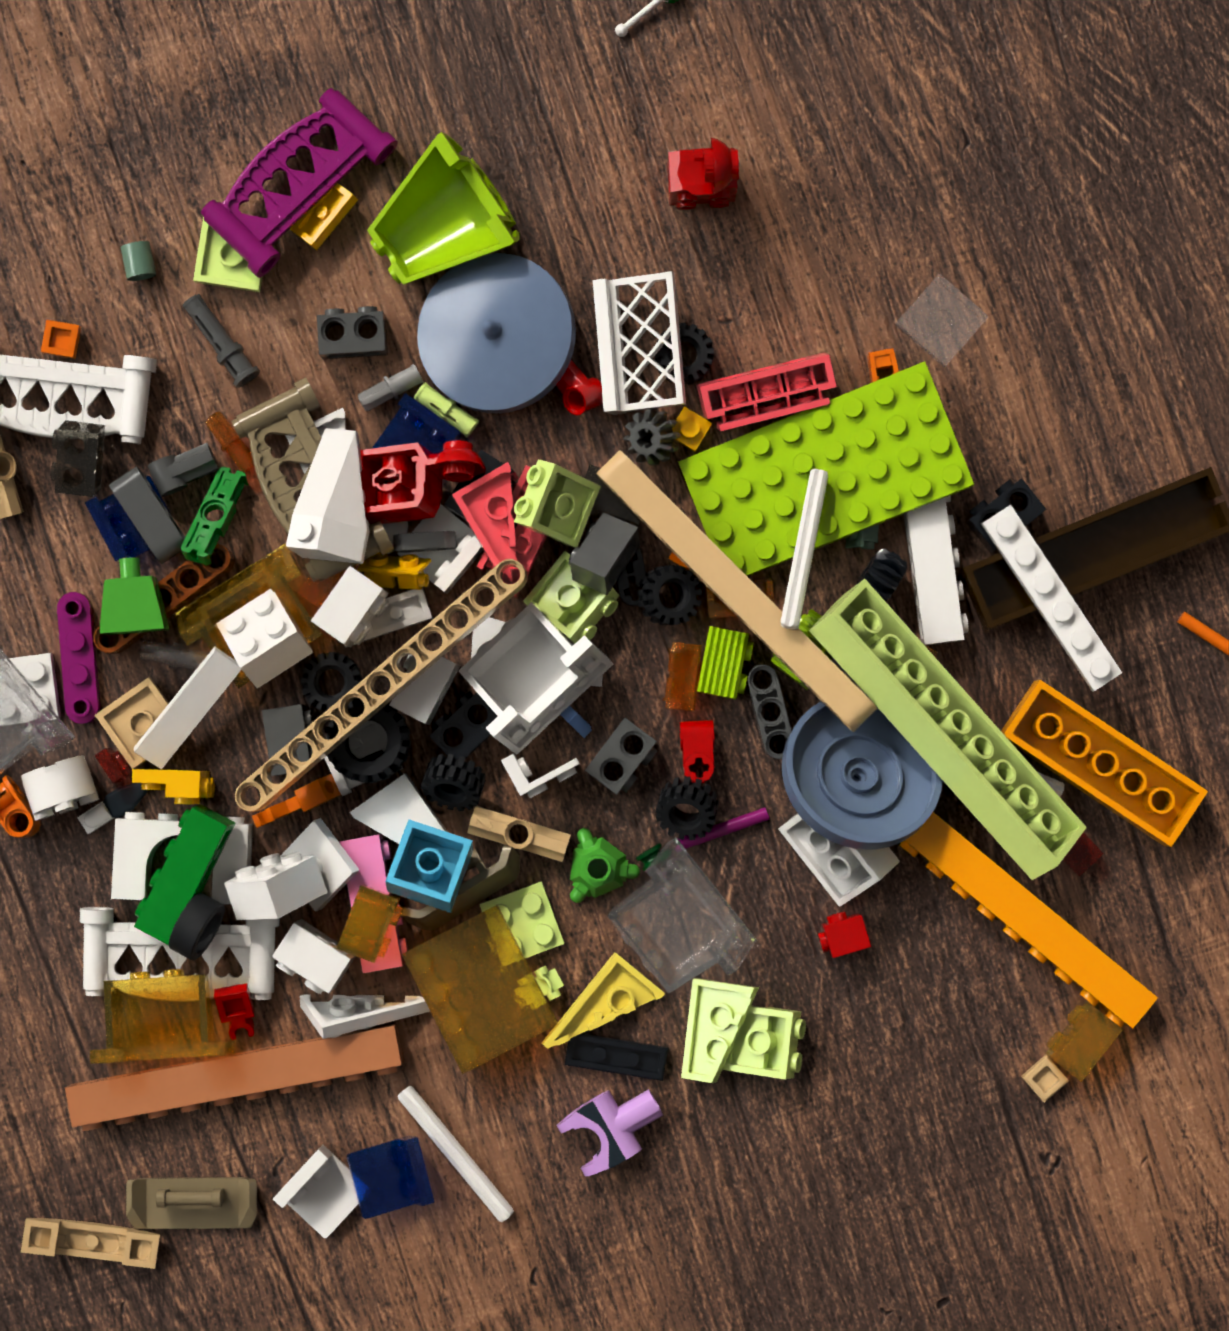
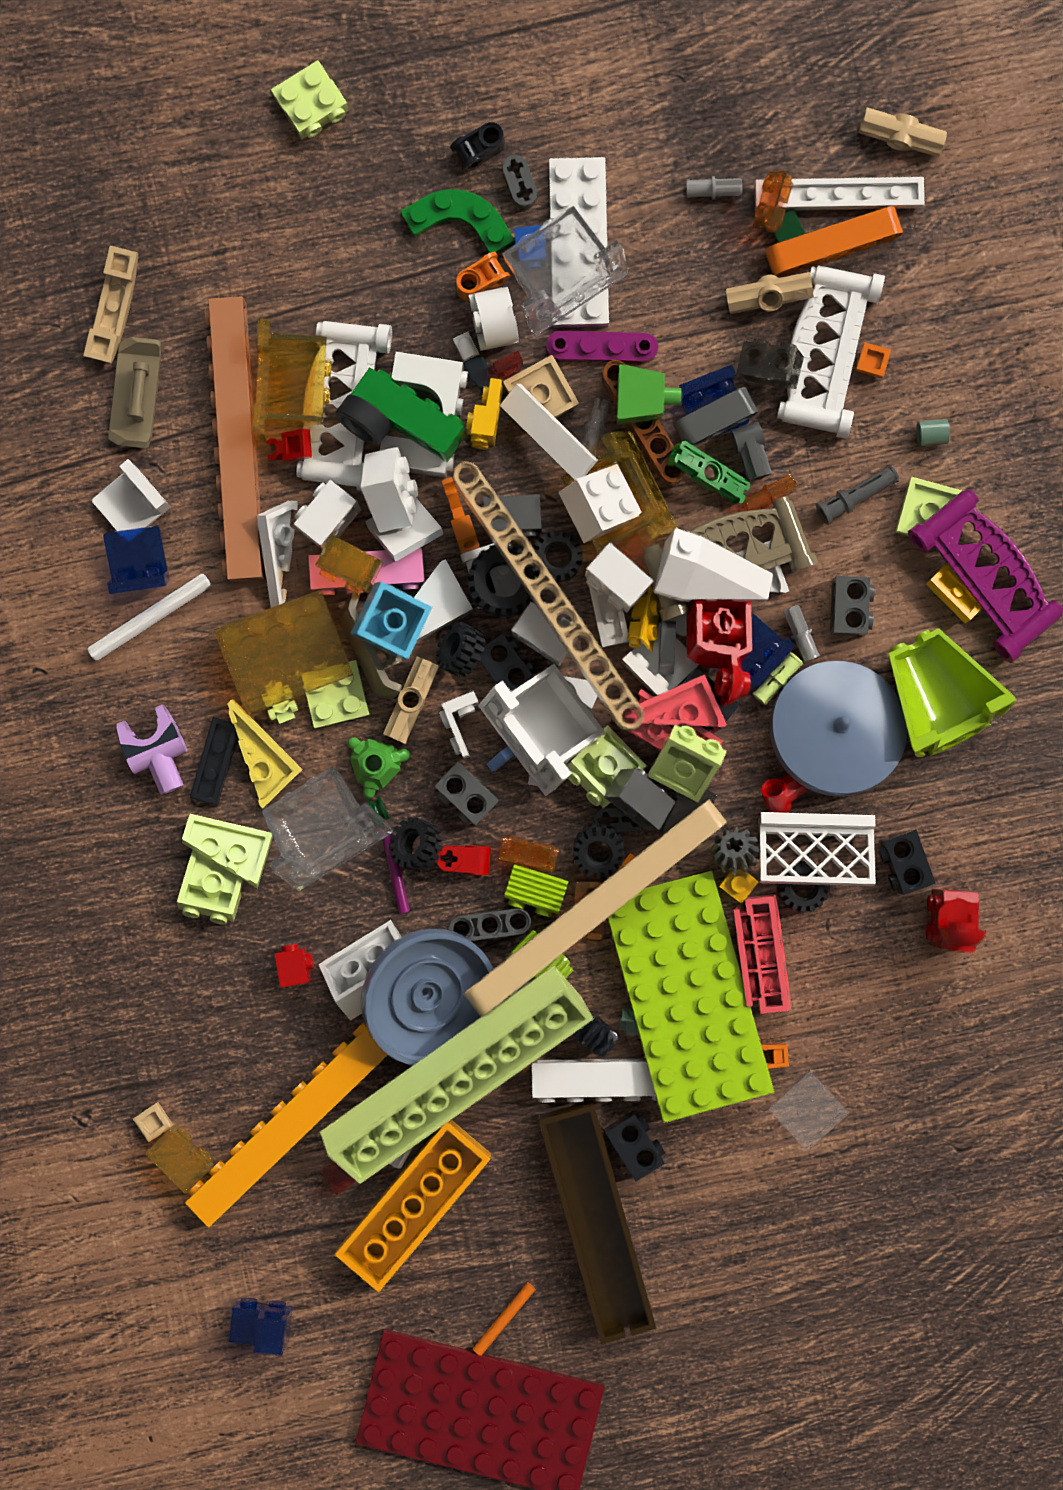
camera: 90 degrees right, 0 degrees up
(637, 230) = (914, 858): none -> black brick
(804, 549) = (624, 970): white axle -> none
(1051, 598) = (558, 1177): white plate -> none

